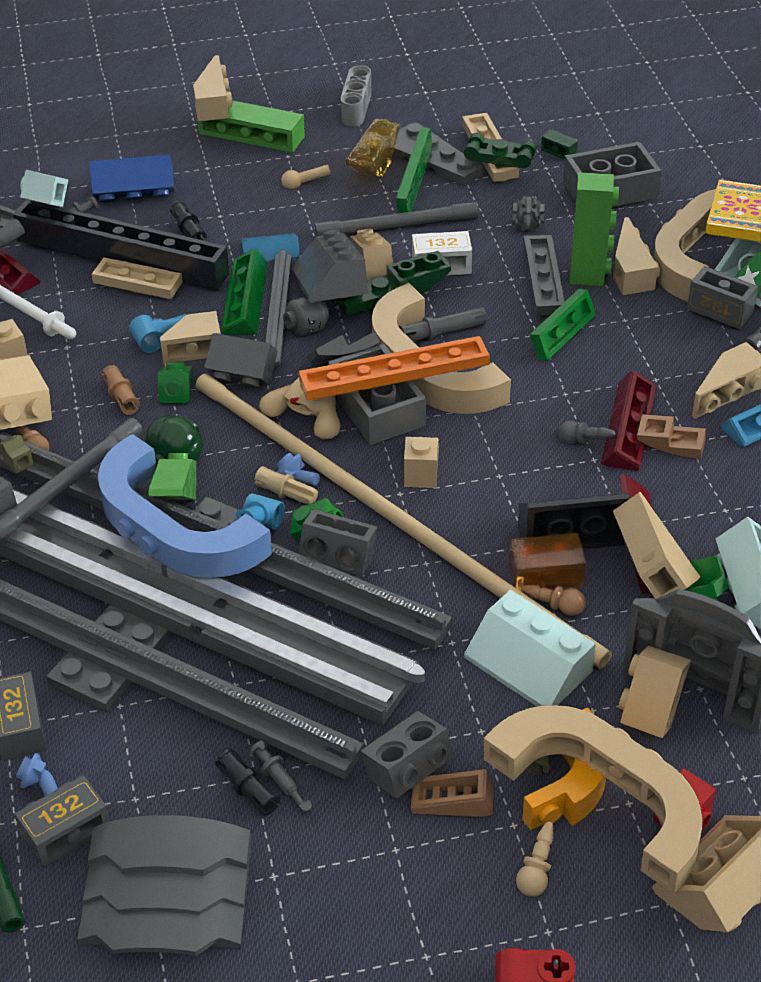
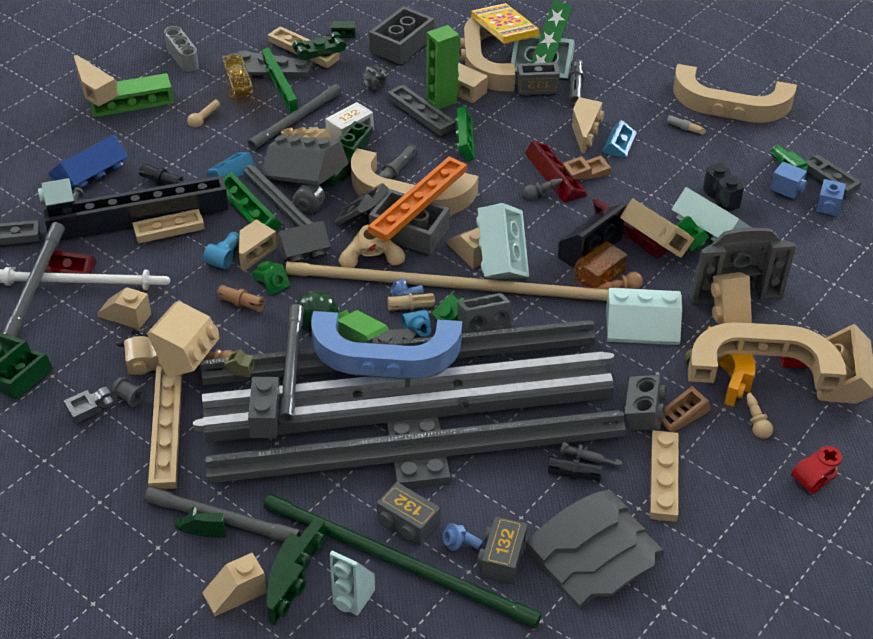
camera: 40 degrees left, 0 degrees up
(342, 857) = (664, 476): none -> tan plate
(441, 469) = (502, 242): none -> light aqua slope

